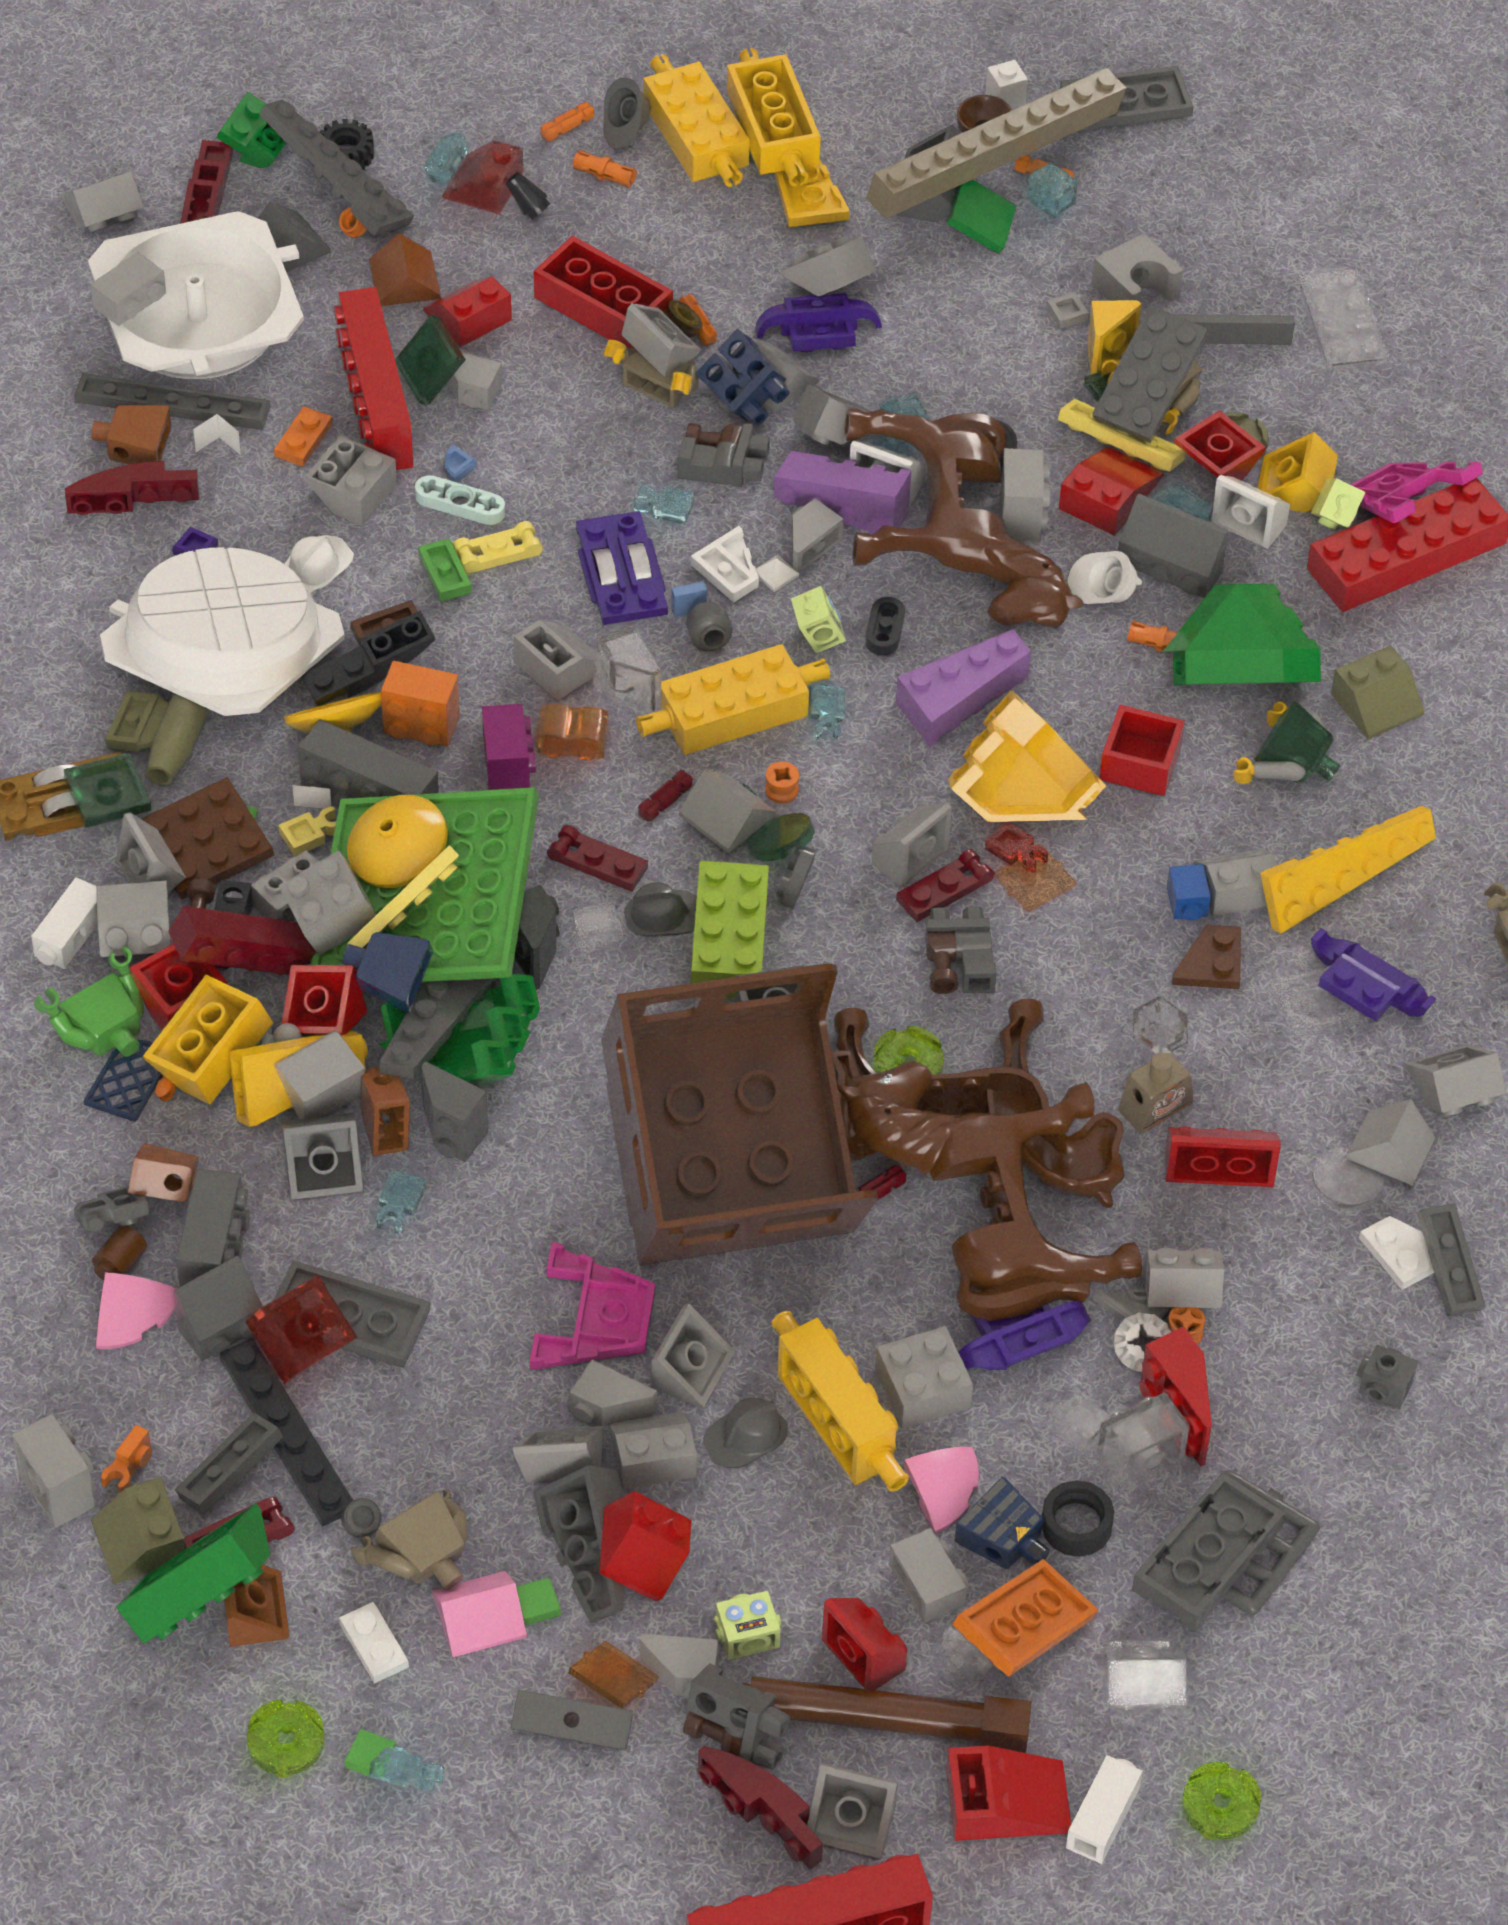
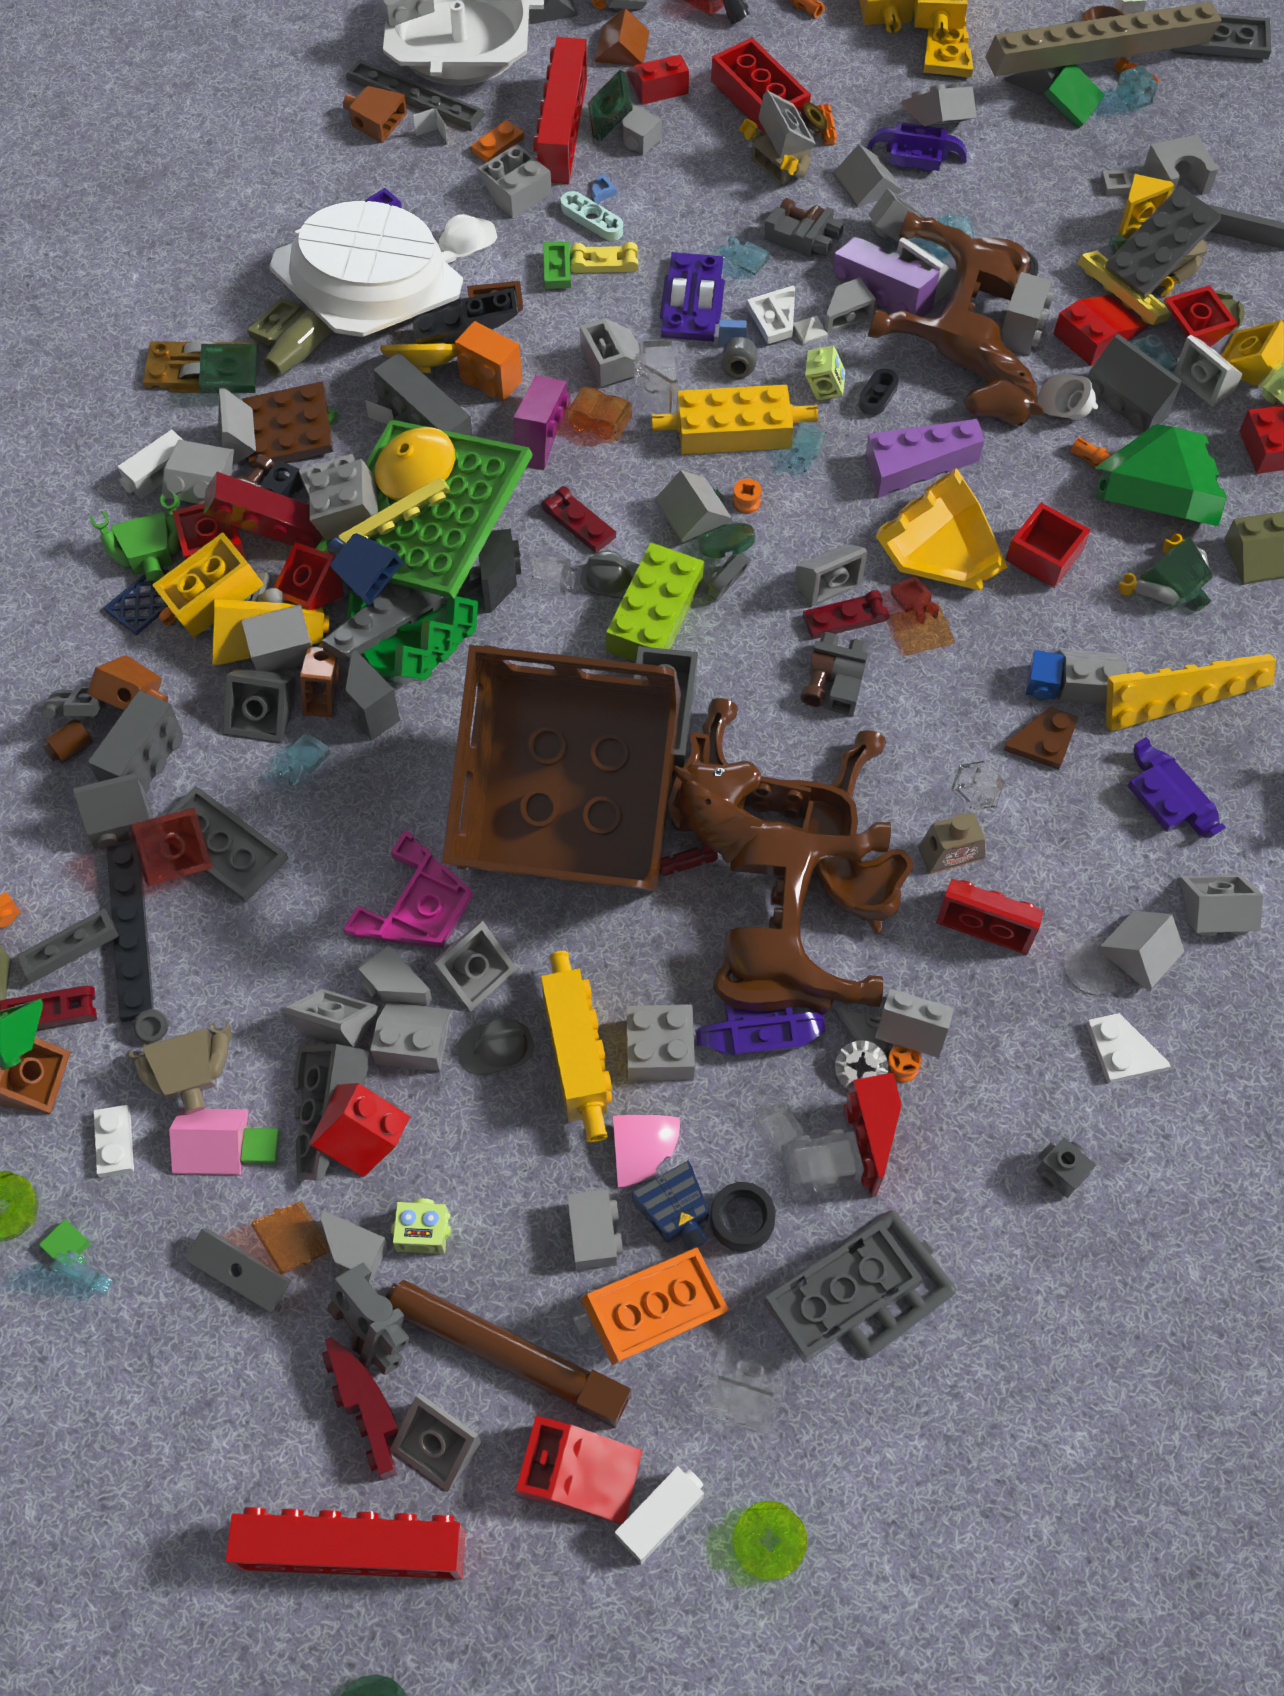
camera: 20 degrees right, 10 degrees up
(121, 486) = (348, 146): dark red slope -> none
(130, 1308) = (53, 788): bright pink brick -> none
(307, 832) = (362, 439): light yellow plate -> none
(665, 795) = (651, 483): dark red axle -> none
(752, 386) = (842, 173): dark blue hips -> none
(862, 1642) = (511, 1277): red slope -> none
(913, 1041) = (760, 739): clear neon green plate -> none
(1451, 1259) = (1159, 1073): dark grey plate -> none

